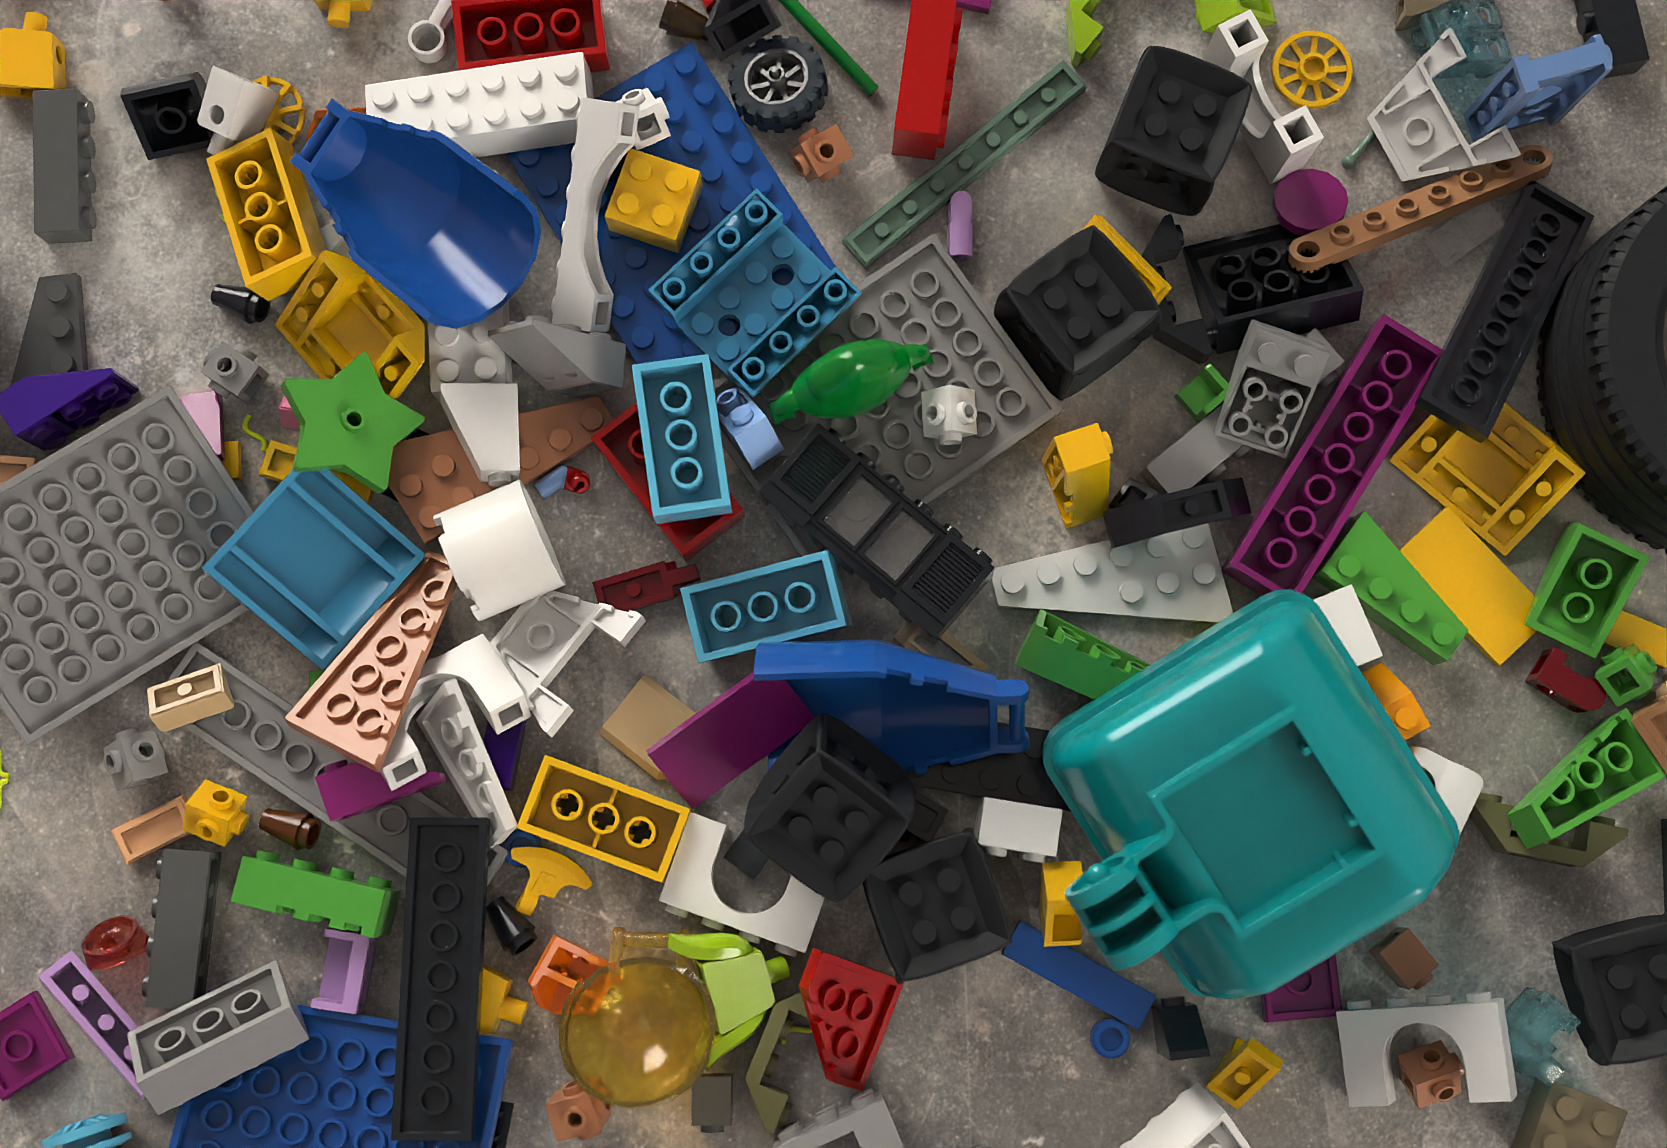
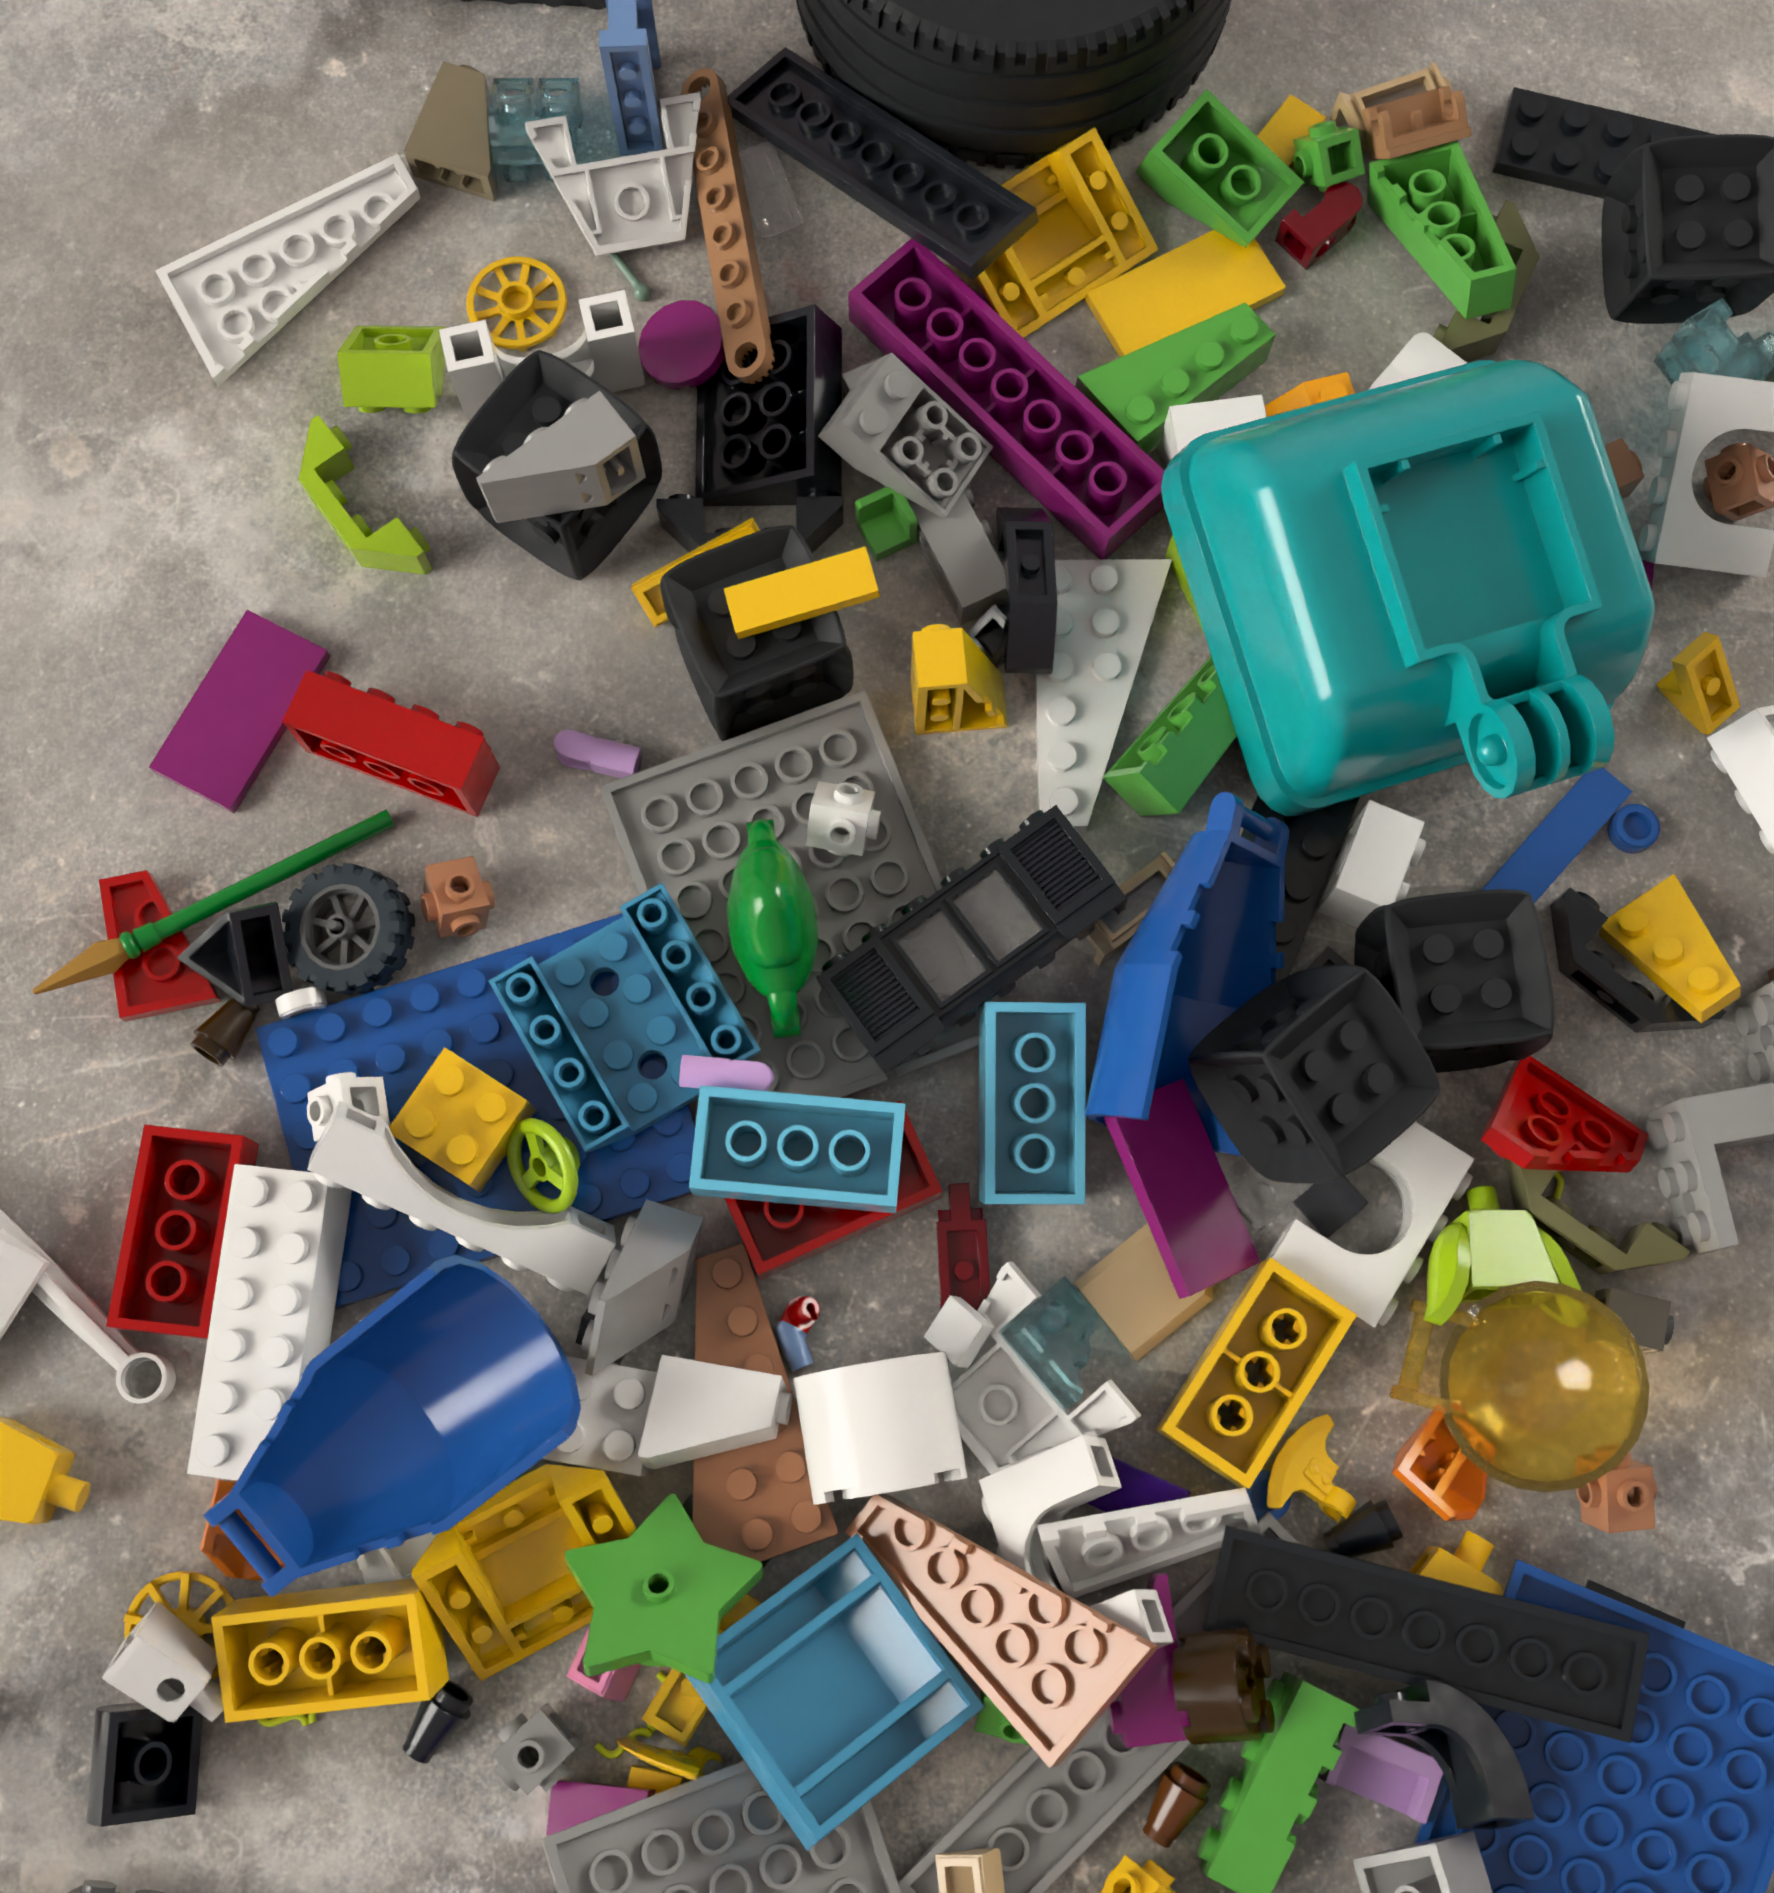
camera: 75 degrees left, 5 degrees down
(245, 465) = (671, 1760): none -> yellow piece
(368, 1021) = (1466, 1743): none -> black arch
(370, 834) = (1222, 1686): none -> dark brown brick
(585, 593) = (958, 1331): none -> white tile
(597, 665) = (1055, 1339): none -> clear light blue wing
(638, 270) = (550, 1161): none -> lime piece
(717, 67) = (300, 1002): none -> white tile
(725, 372) = (724, 1073): none -> lavender bar
(747, 427) = (807, 1064): light blue slope -> none
(964, 164) = (519, 733): sand green tile -> none
(1012, 1081) = (1673, 949): none -> yellow wing
(1014, 1003) = (1575, 922): none -> black slope
(1057, 918) = (1462, 838): yellow panel -> none
(1104, 330) = (801, 592): none -> yellow tile
(1154, 129) = (567, 467): none -> light grey slope
(1179, 1029) = (1651, 741): black slope -> none

